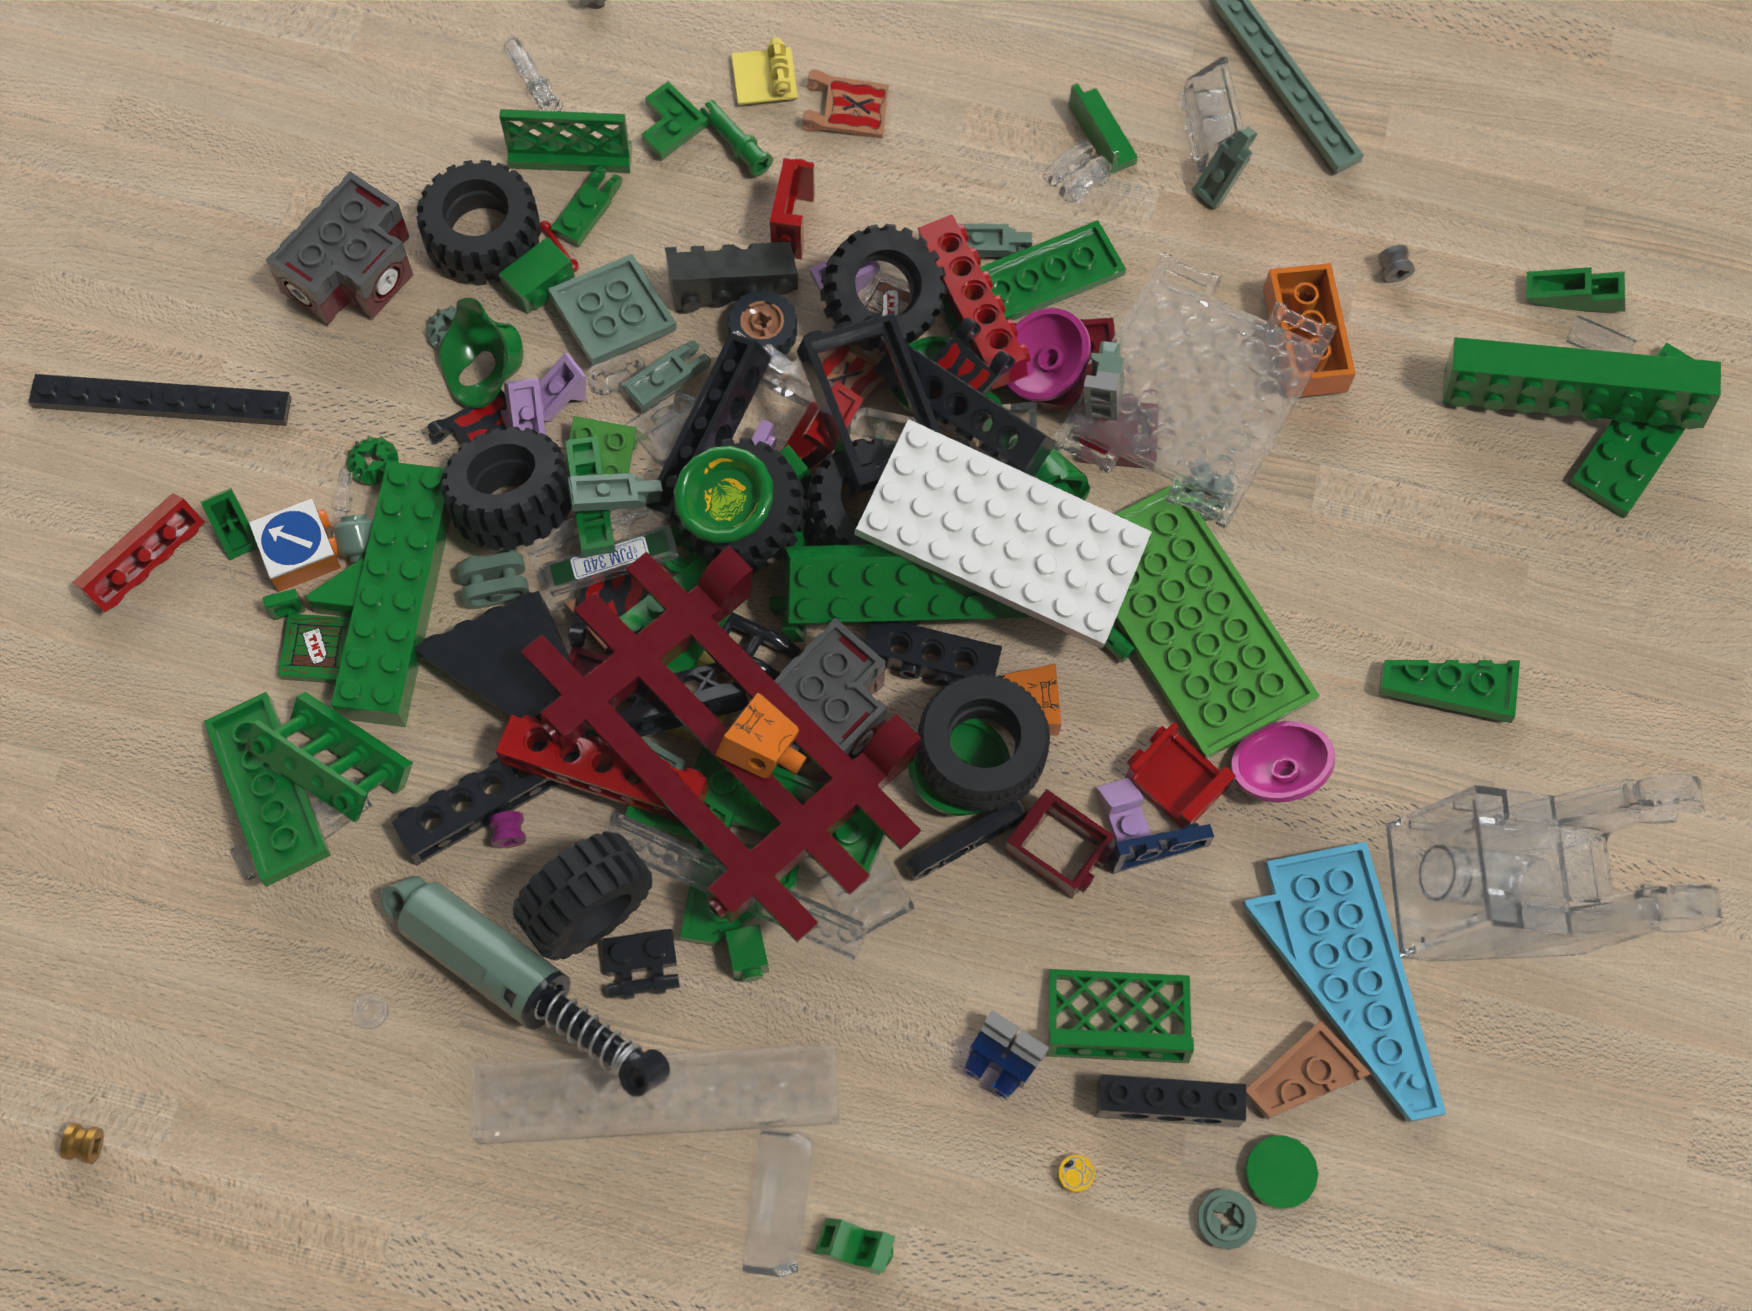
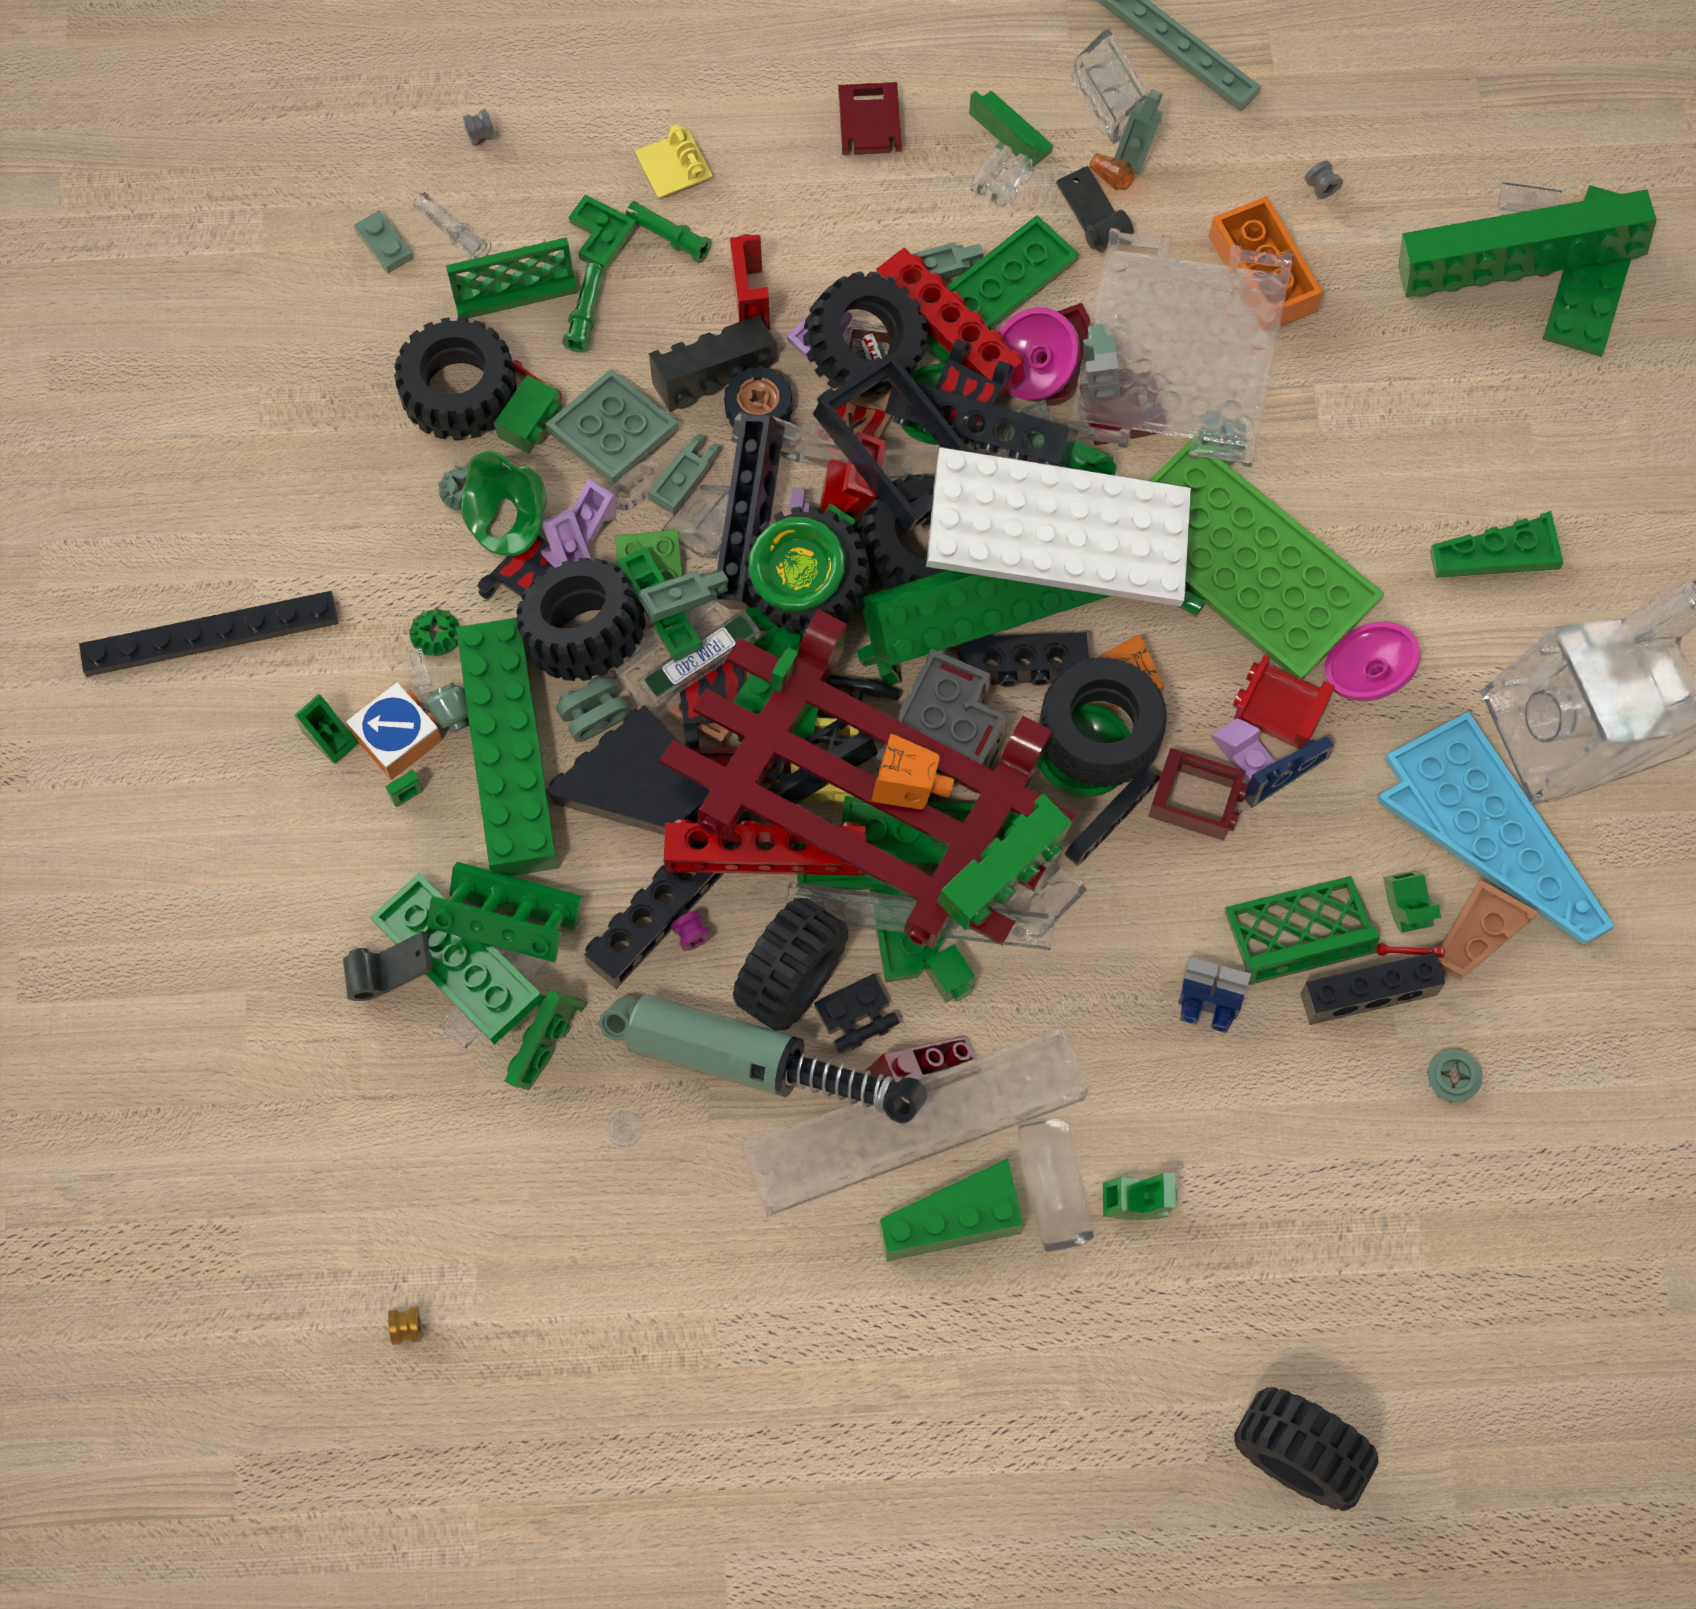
camera: 15 degrees left, 0 degrees up
(139, 552) = (249, 780): red brick -> none
(188, 779) = (375, 974): none -> pearl dark grey door
(313, 648) = (449, 820): tile -> none
(313, 900) = (539, 1037): none -> green wing
(338, 594) = (455, 763): green slope -> none
(345, 253) = (341, 444): dark grey piece -> none
(464, 74) = (383, 241): none -> sand green plate
(586, 207) = (546, 343): green hinge -> none
(622, 198) = (582, 318): none -> green pin
(668, 1205) = (956, 1216): none -> green wedge
(675, 596) = (784, 669): none -> green tile
(686, 1034) = (923, 1059): none -> dark red slope
(824, 862) = (1006, 864): none -> green wedge
(850, 105) = (765, 171): nougat flag -> none
(966, 85) = (869, 121): none -> dark red container
(1076, 1174) = (1309, 1078): yellow tile -> none
(1156, 227) = (1092, 208): none -> pearl dark grey door
(1190, 199) = (1113, 171): none -> clear orange cone
(1197, 1062) = (1383, 949): none -> red hinge
(1240, 1021) = (1410, 901): none -> green brick
(1281, 1172) = (1488, 1021): green tile -> none
(1577, 289) = (1494, 158): green slope -> none

